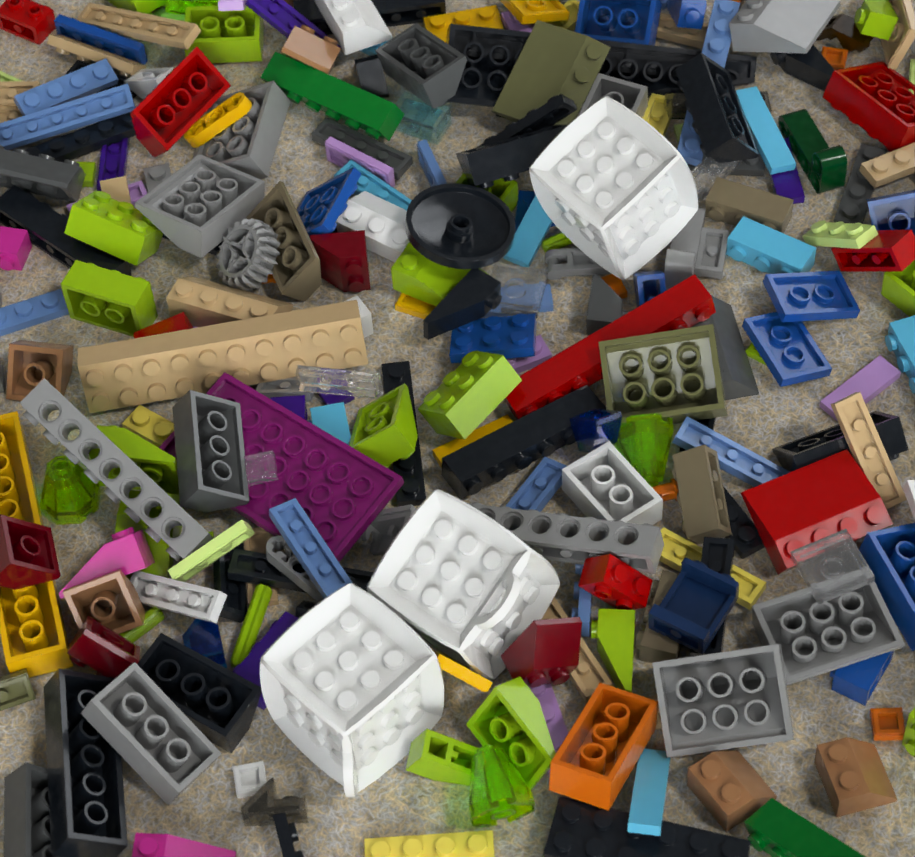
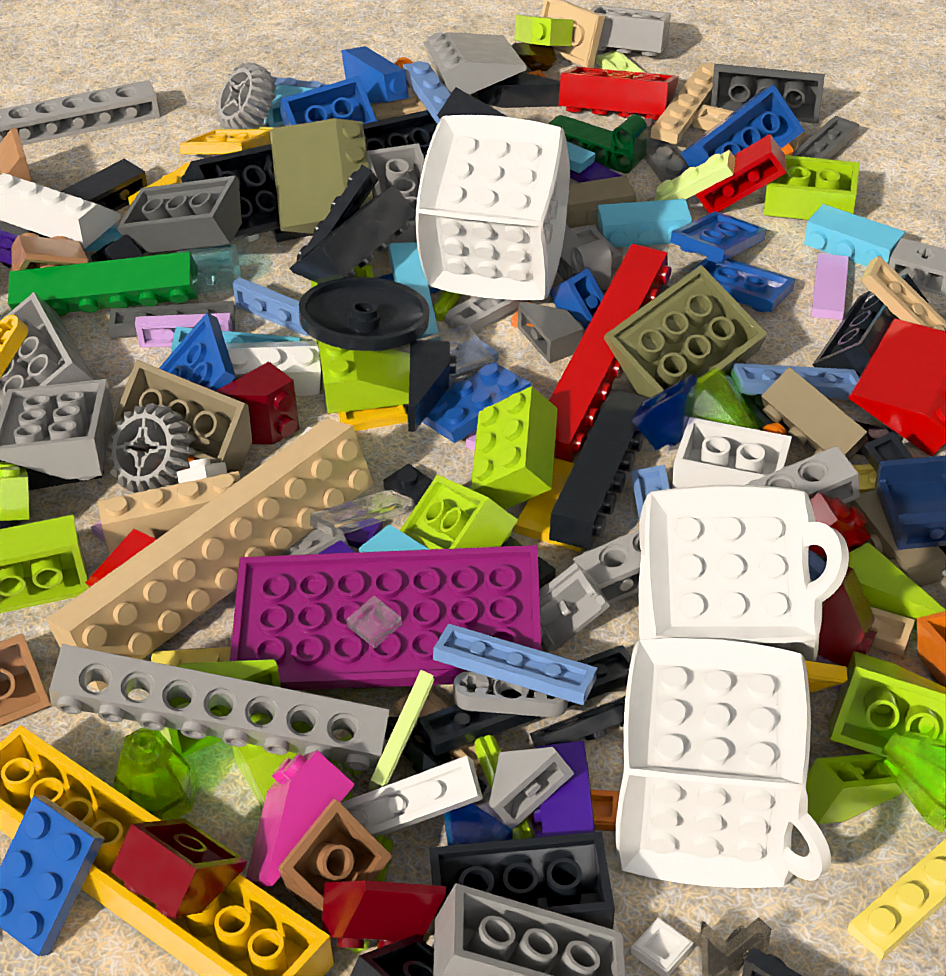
camera: 40 degrees left, 10 degrees down
(209, 452) = (302, 636): dark grey slope -> none
(247, 630) = (525, 781): none -> light grey slope
(265, 291) = (201, 469): none -> white plate

